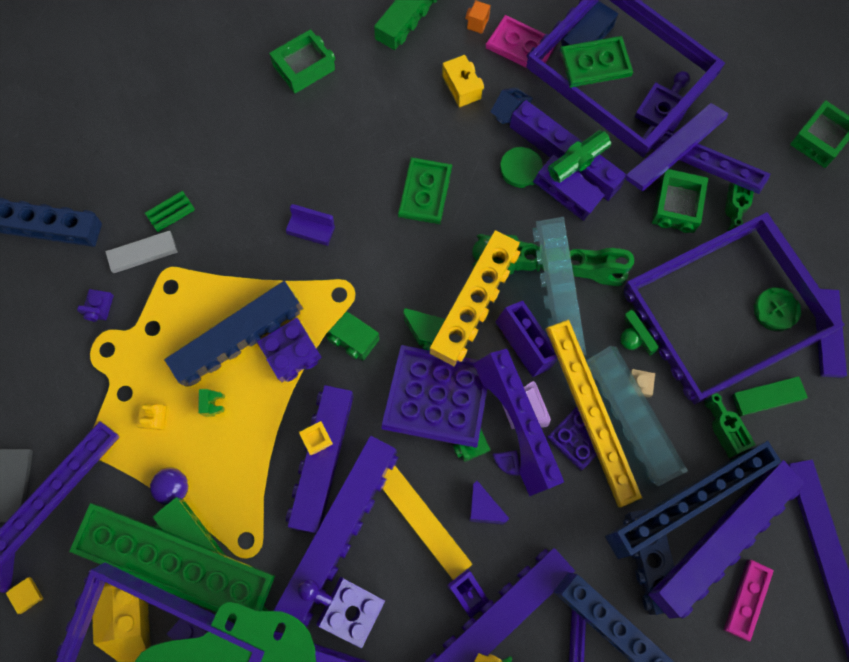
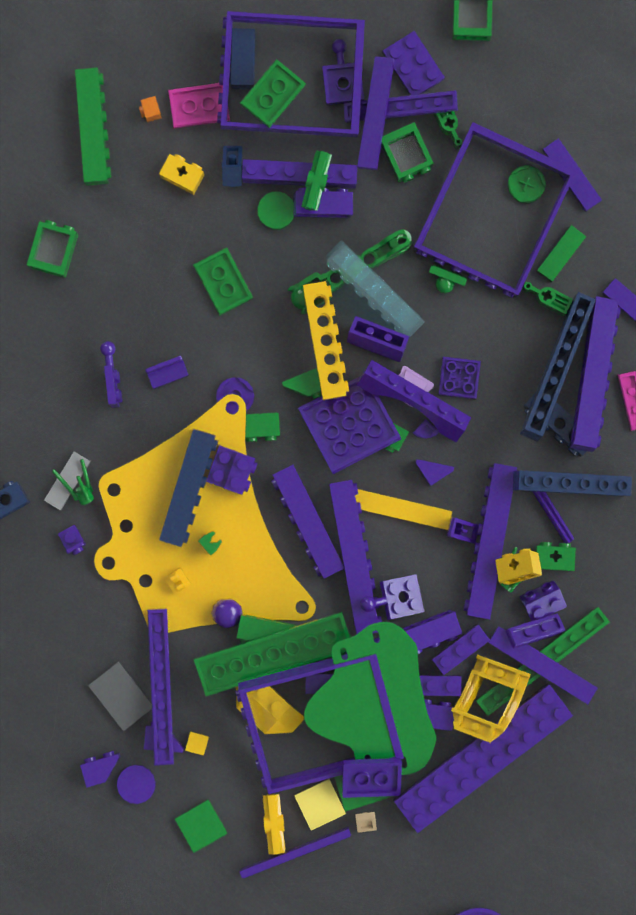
camera: 35 degrees left, 15 degrees up
(142, 271) = (83, 492): none -> green plant
(168, 208) = (52, 436): green tile -> none
(254, 192) = (111, 374): none -> dark purple plate
(315, 438) = (298, 513): yellow tile -> none
(363, 288) = (238, 387): none -> dark purple tile
(594, 413) = (456, 357): yellow tile -> none
(636, 416) = (484, 337): clear light blue brick -> none
(645, 381) = (472, 309): tan plate -> none
(741, 136) = (414, 64): none -> dark purple plate

